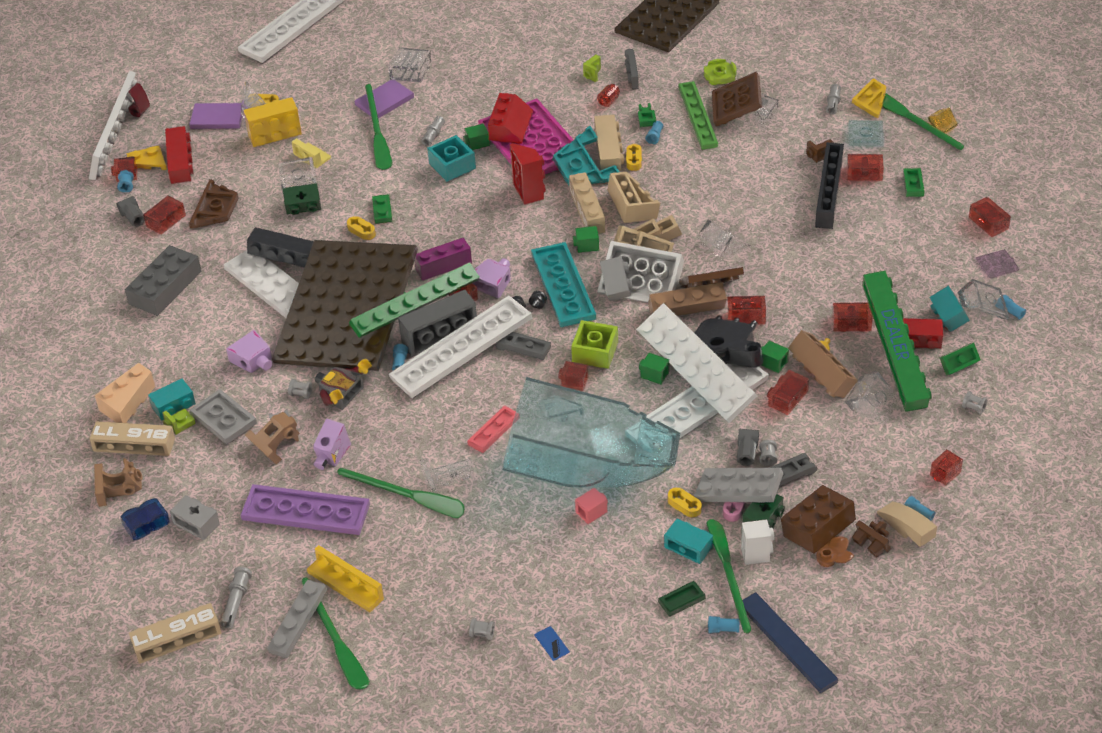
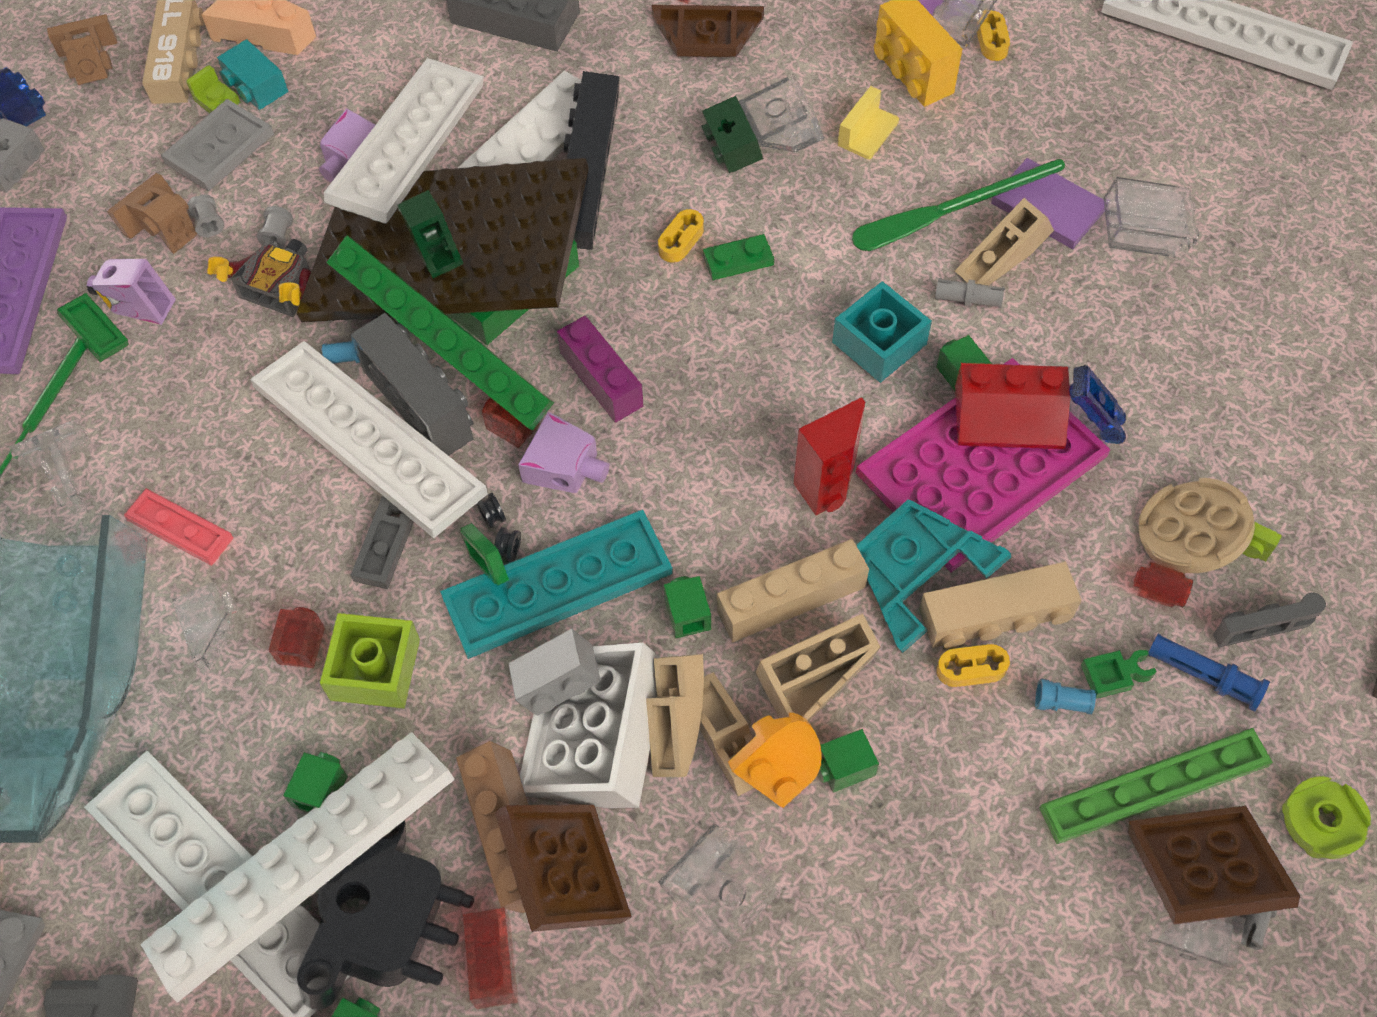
camera: 80 degrees right, 15 degrees up
(265, 317) = (403, 141): none -> white plate
(349, 466) = (92, 327): none -> green tile
(361, 285) = (430, 234): none -> dark green brick
(409, 112) = (1007, 244): none -> tan slope
(518, 89) = (1098, 404): none -> clear blue hinge
(546, 300) = (484, 554): none -> green tile
(583, 79) = (1196, 525): none -> tan tile
(655, 86) = (1224, 678): none -> blue pin
(673, 196) = (847, 761): none -> green brick
(673, 207) = (779, 758): none -> light orange slope

